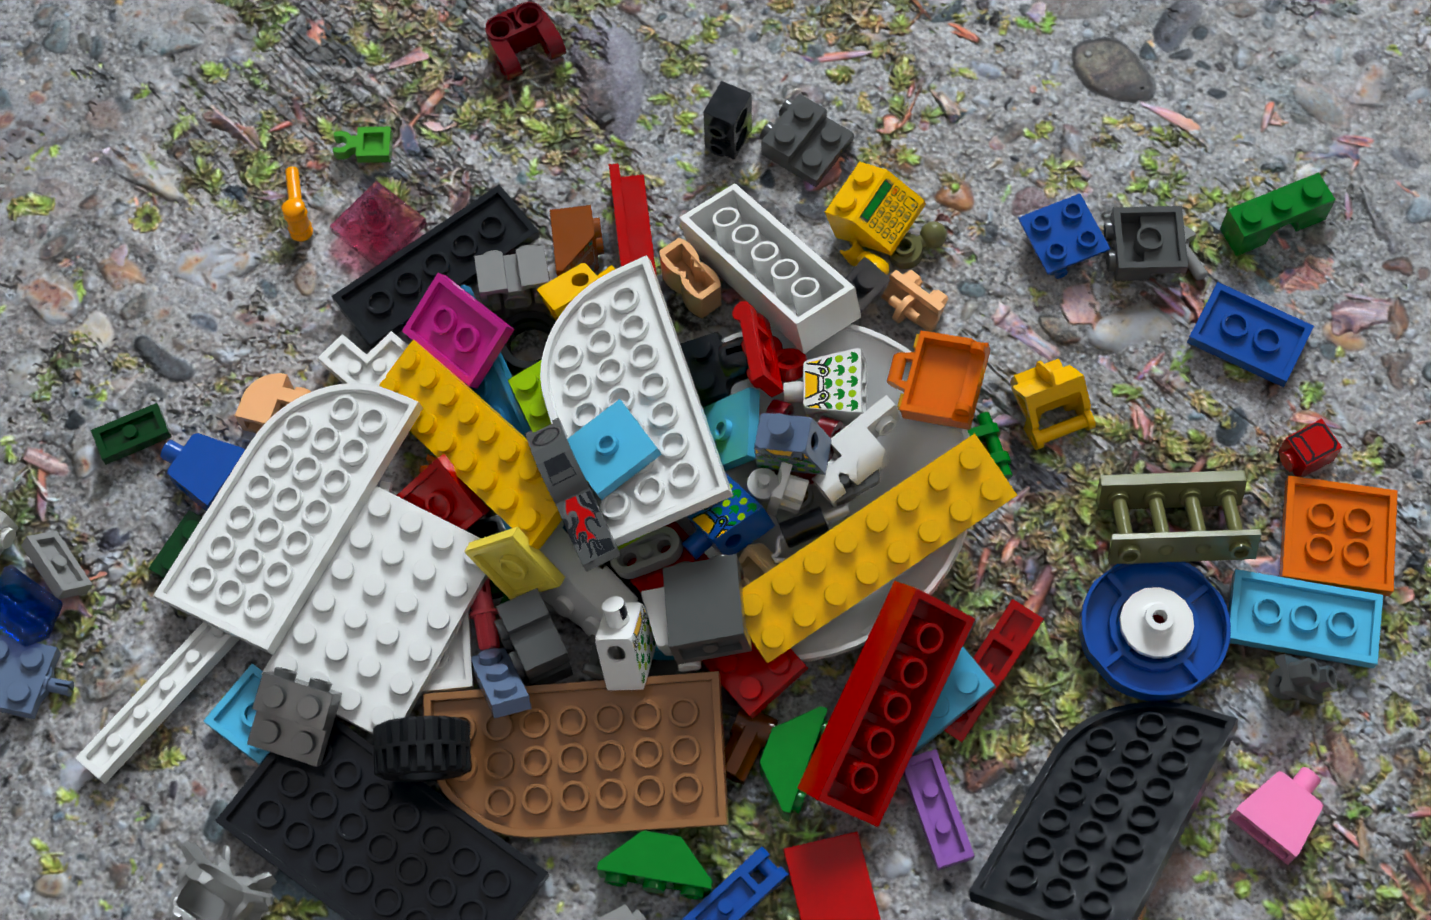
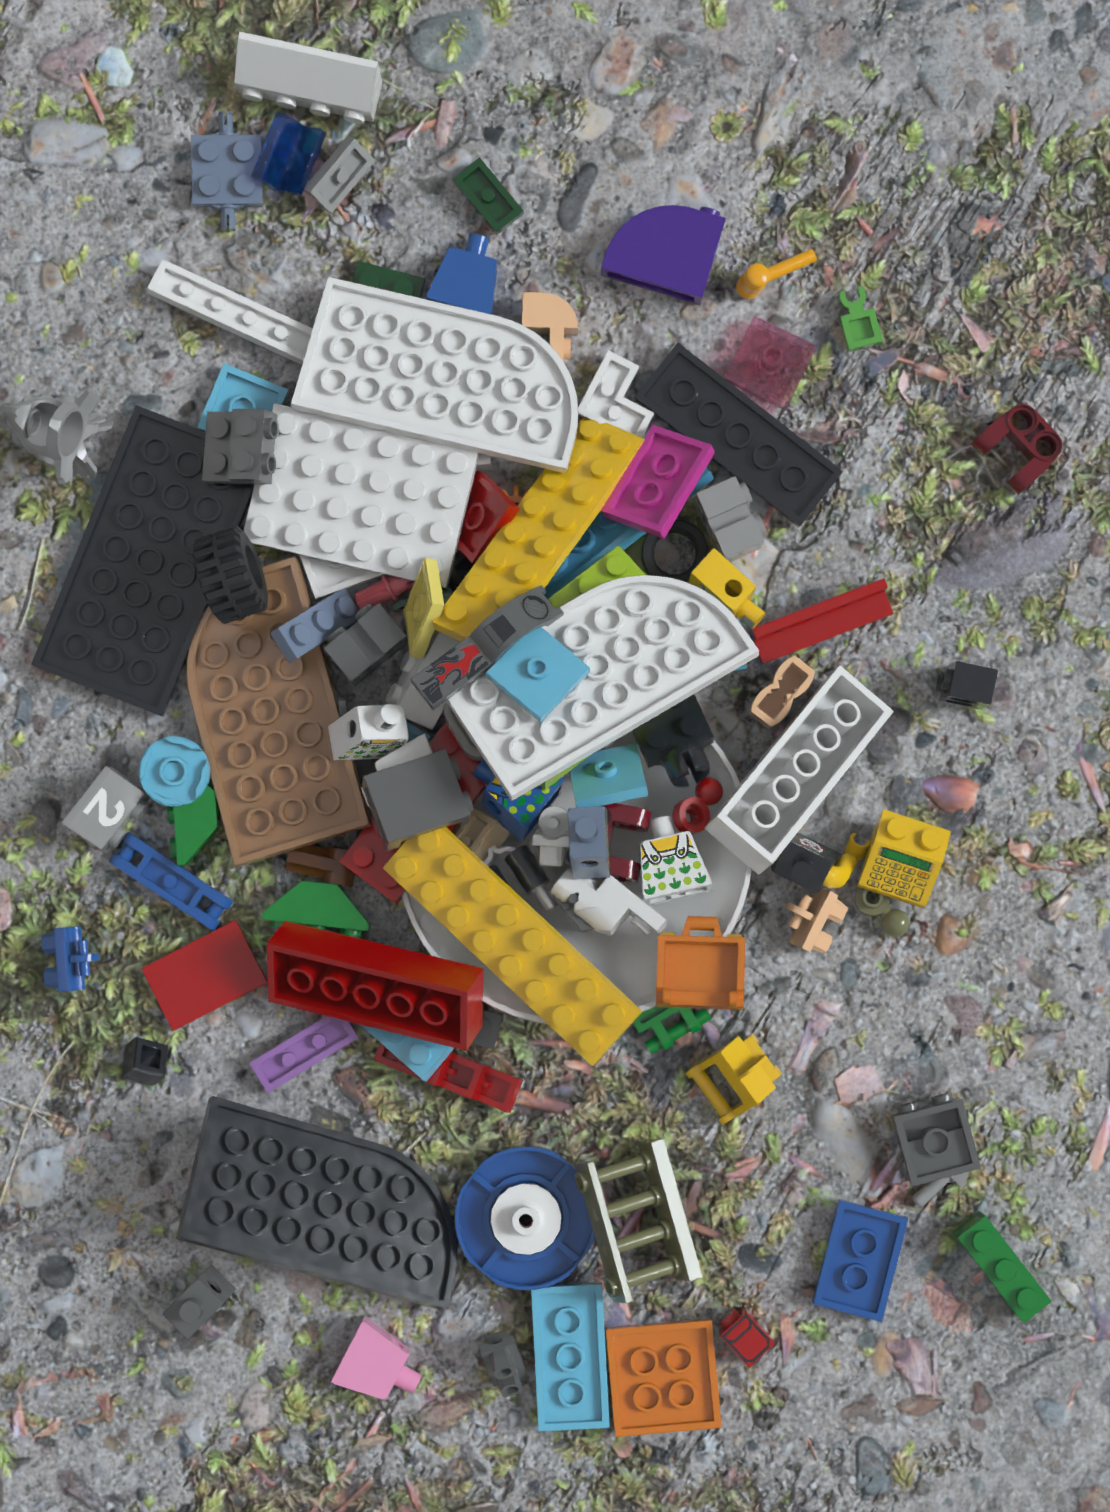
camera: 75 degrees right, 20 degrees up
(244, 287) = (666, 251): none -> dark purple brick
(576, 238) = (783, 568): dark orange slope -> none
(610, 865) = (174, 771): none -> medium azure tile
(759, 349) = (692, 784): red plate -> none
(805, 140) = (975, 768): dark grey plate -> none
(1063, 234) = (923, 1054): blue hinge -> none

